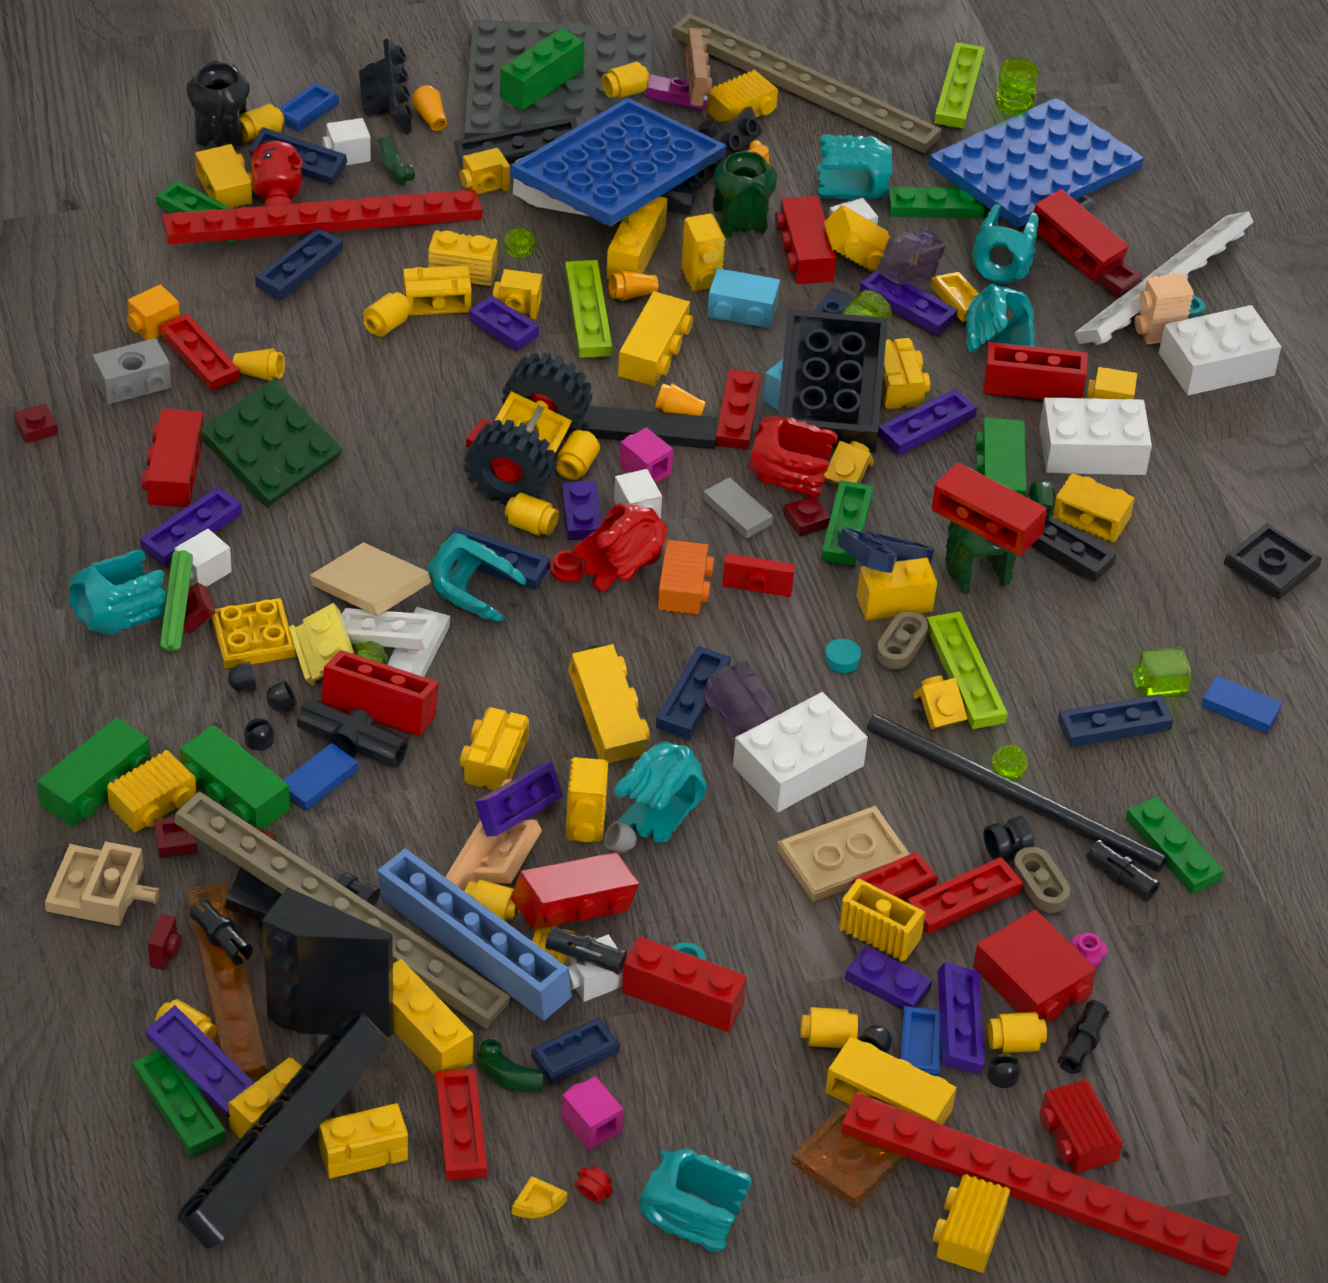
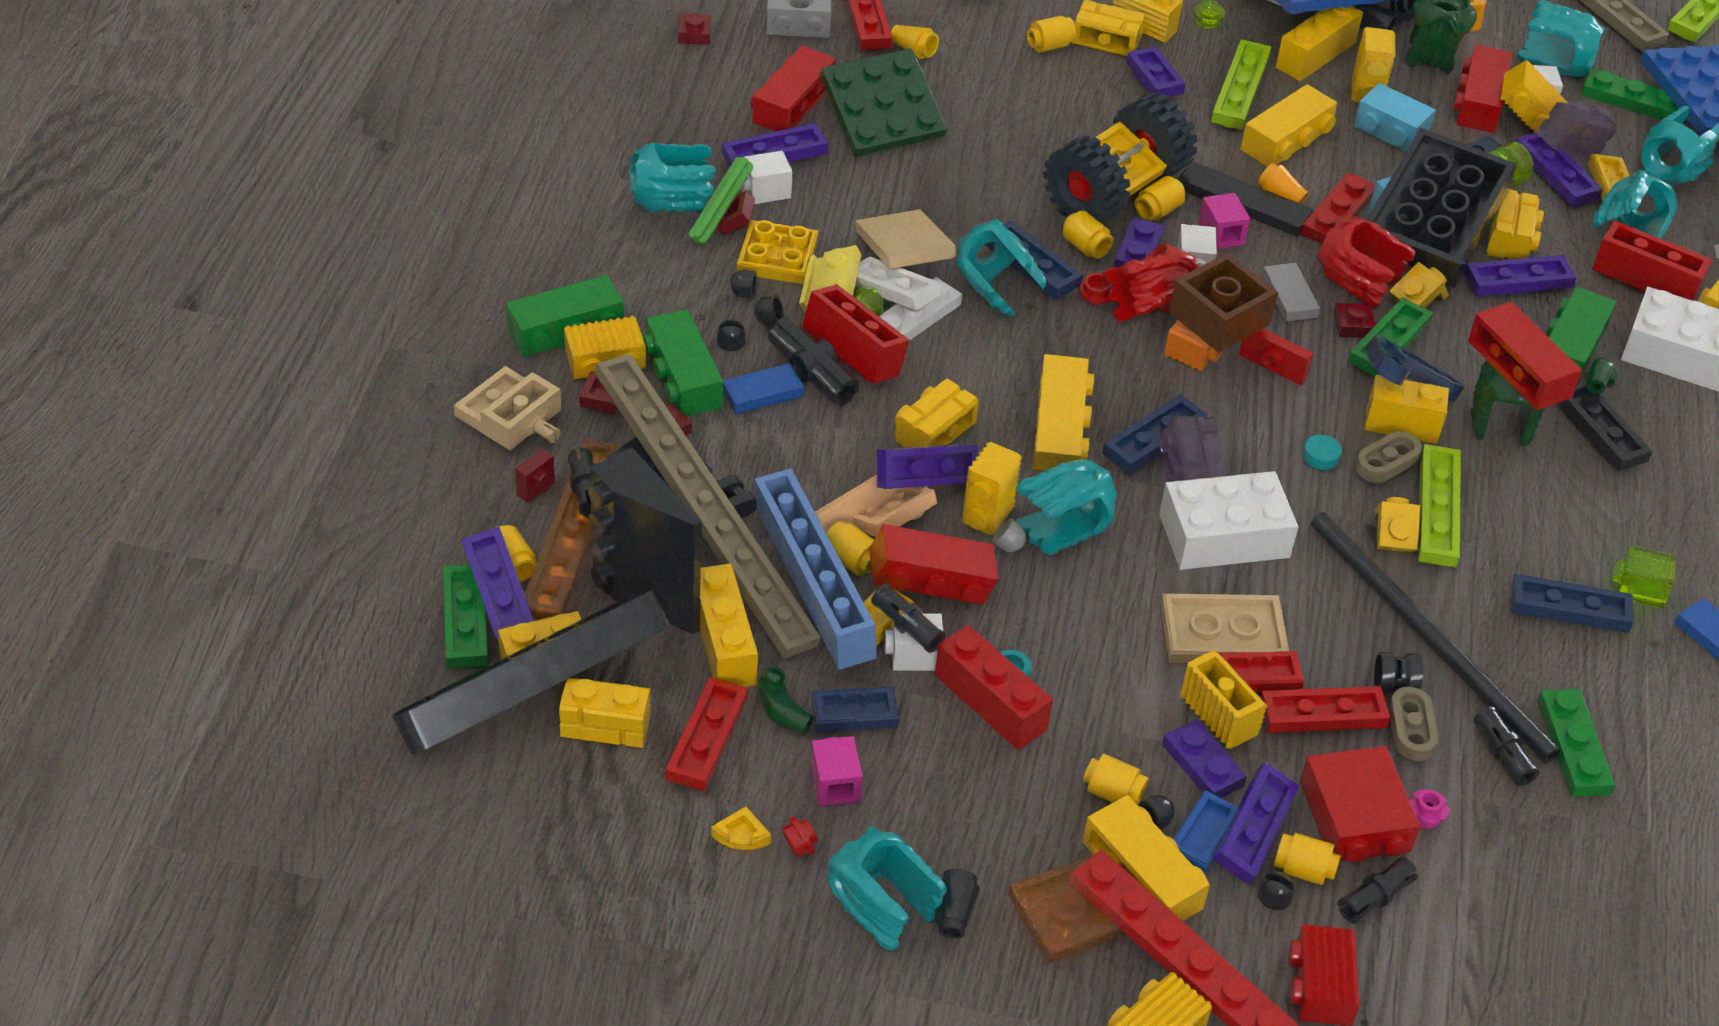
camera: 25 degrees right, 0 degrees up
(520, 291) = (1185, 51): yellow brick -> none
(630, 285) = (1292, 76): light orange cone -> none
(700, 545) = (1223, 302): none -> reddish brown brick
(760, 1195) = (957, 902): none -> black cone
(1010, 761) = (1440, 603): clear neon green plate -> none
(1093, 507) = (1651, 402): yellow brick -> none

